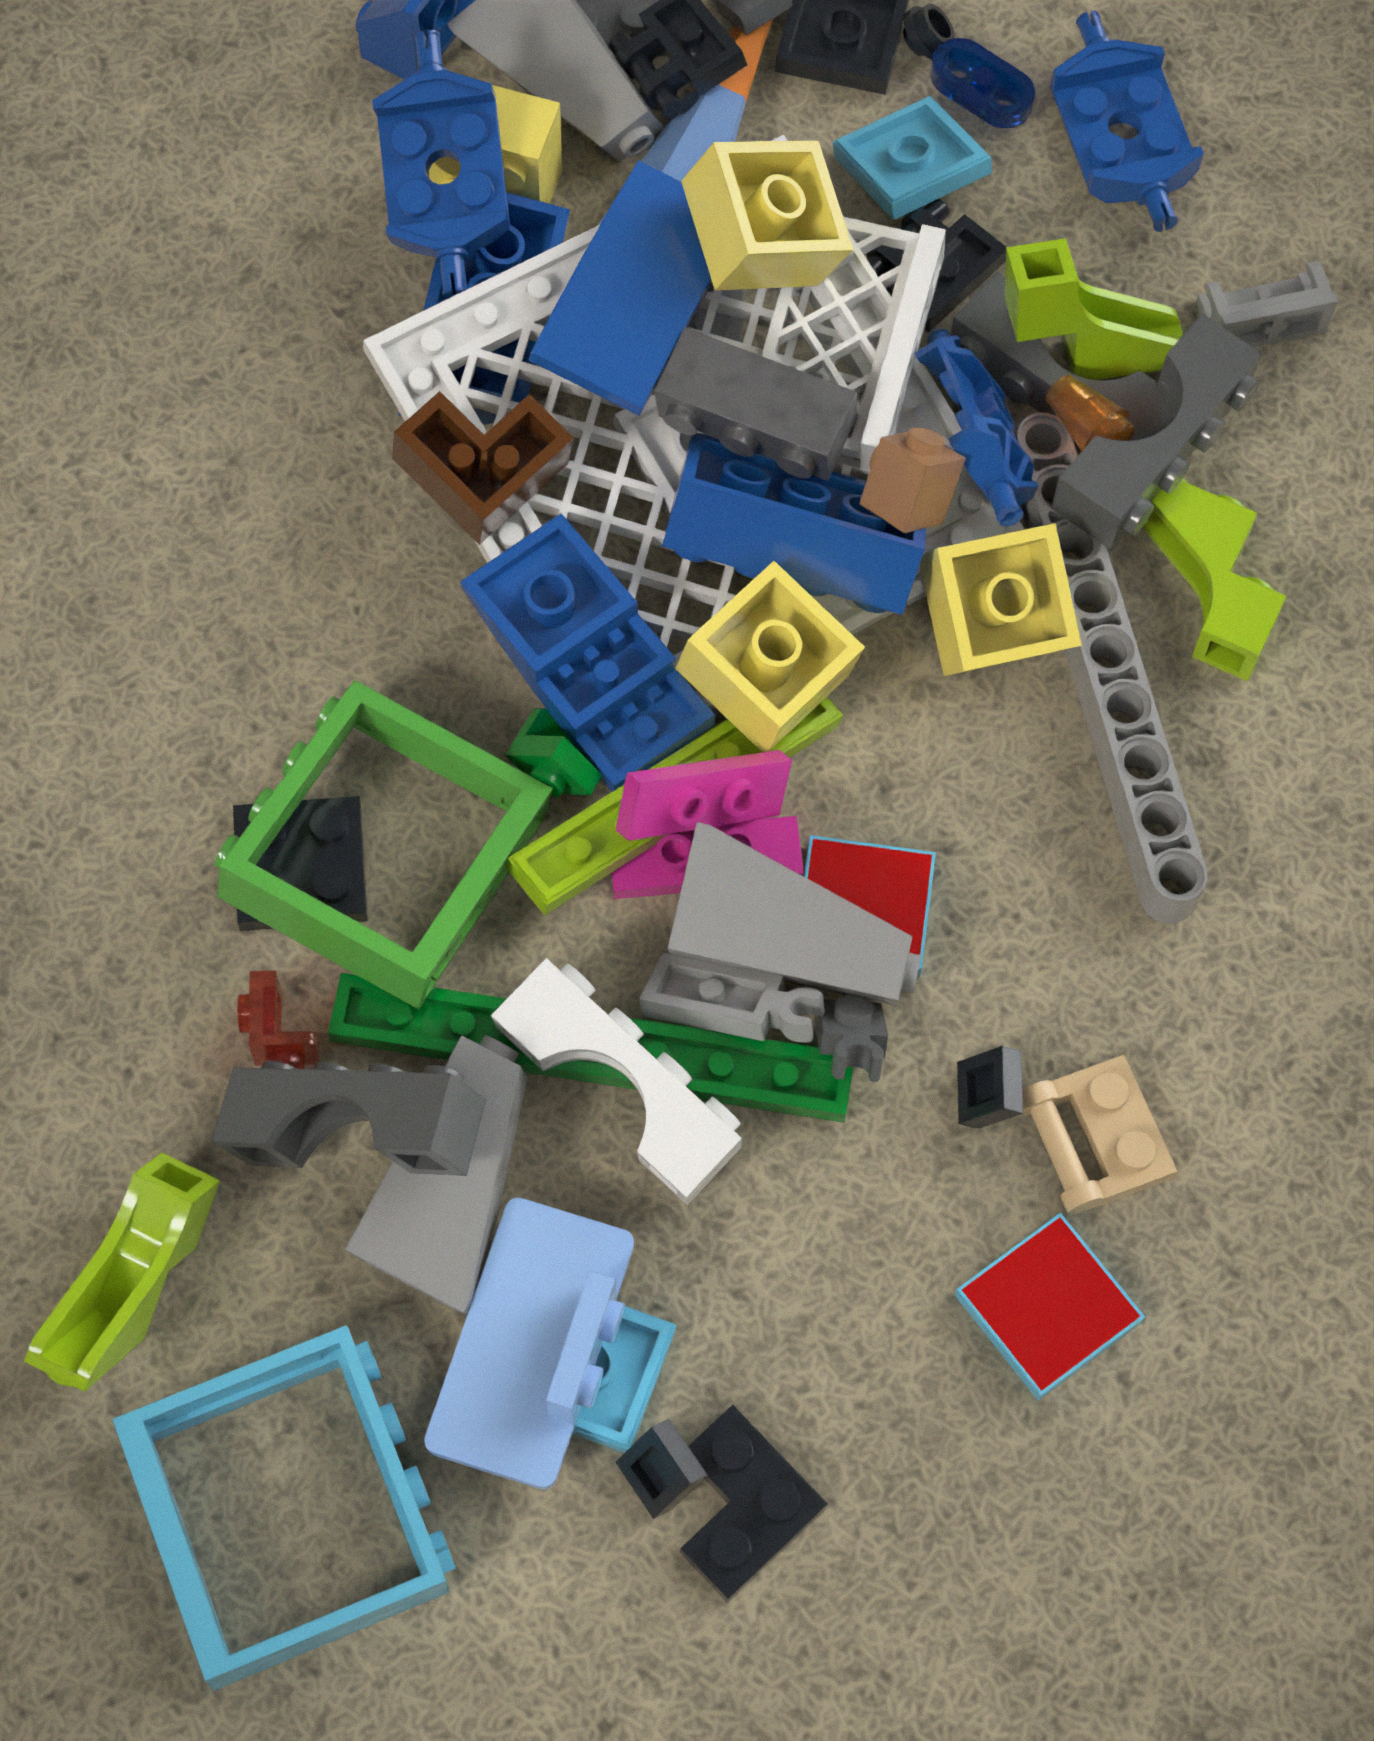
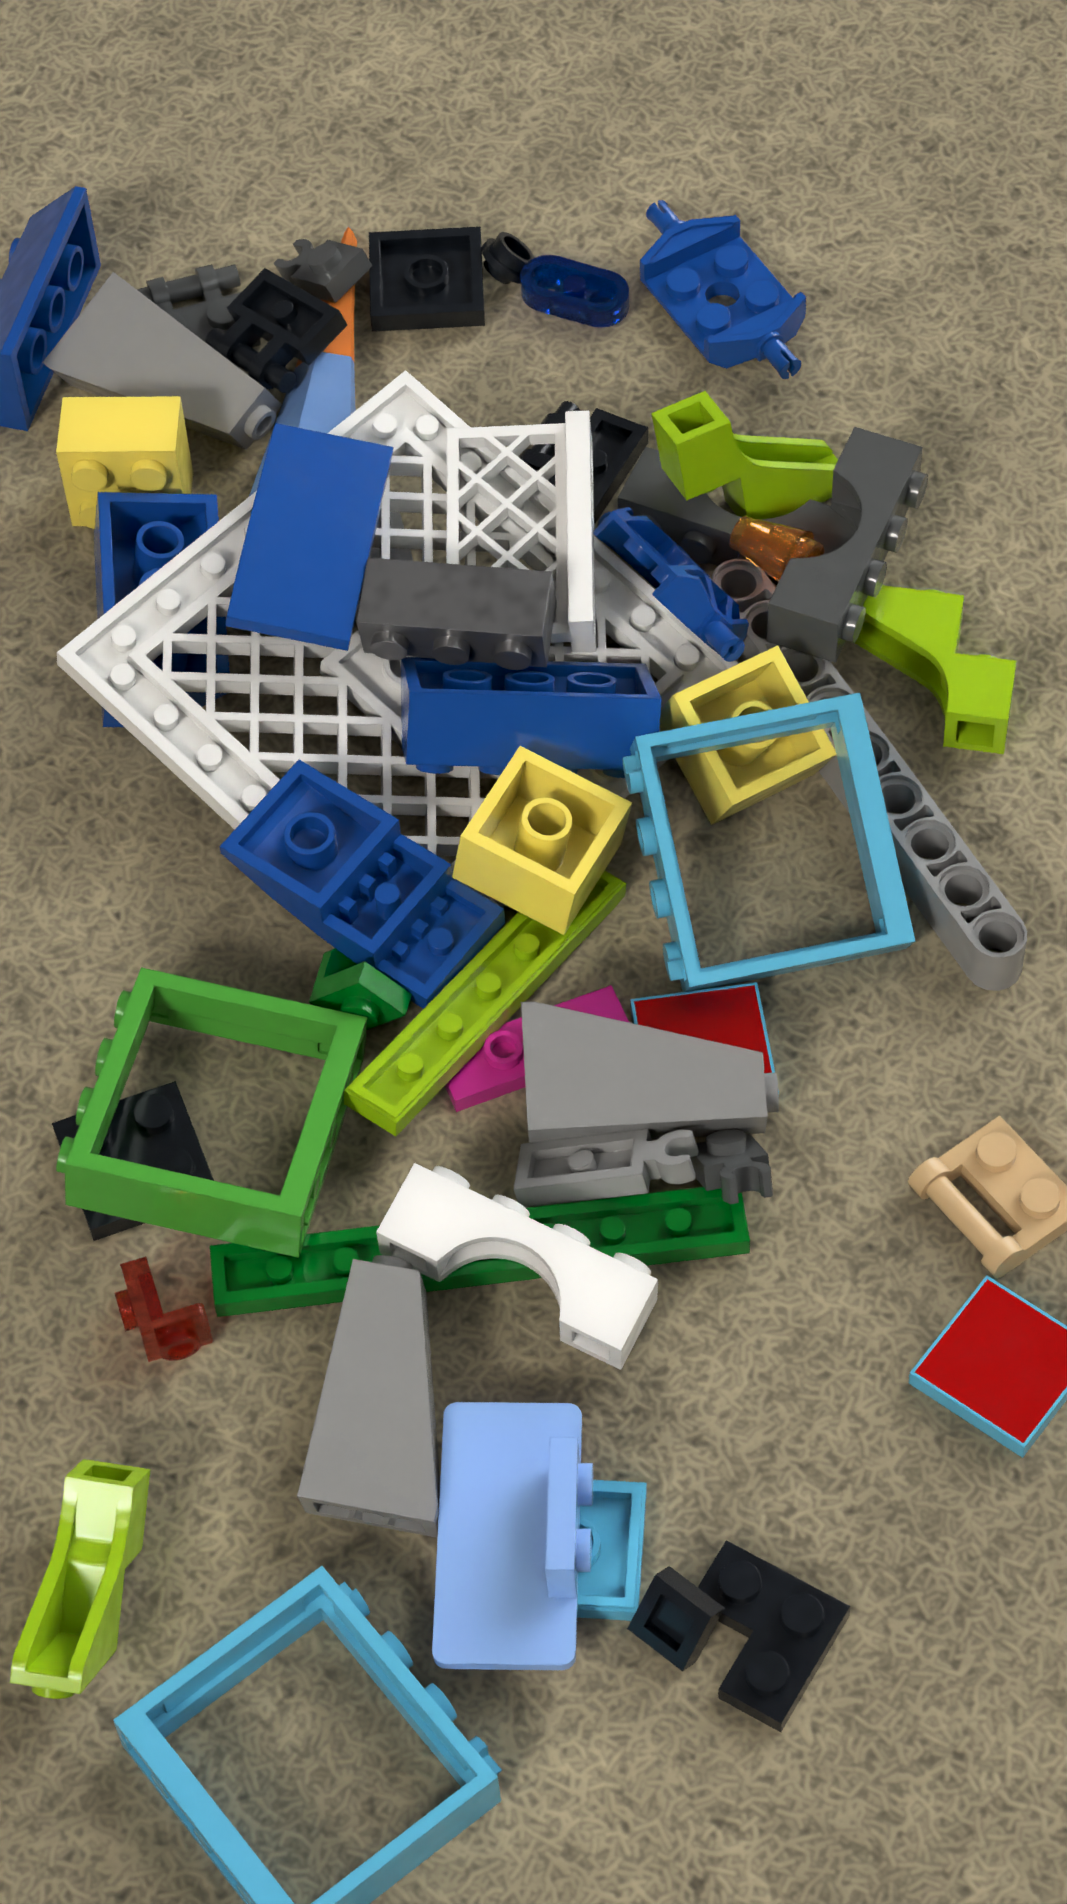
camera: 10 degrees left, 10 degrees down
(285, 1112) = (195, 1386): dark grey arch -> none
(431, 119) = (76, 433): blue plate -> none
(481, 475) = (207, 741): reddish brown brick -> none
(703, 792) = (494, 985): dark pink plate -> none
(766, 214) = (416, 436): light yellow brick -> none
(912, 157) = (529, 372): medium azure tile -> none
(912, 479) = (628, 640): medium nougat brick -> none
(990, 1087) = (880, 1178): black plate -> none
(1088, 729) = (867, 814): none -> medium azure window
(1273, 310) = (924, 418): light grey hinge -> none

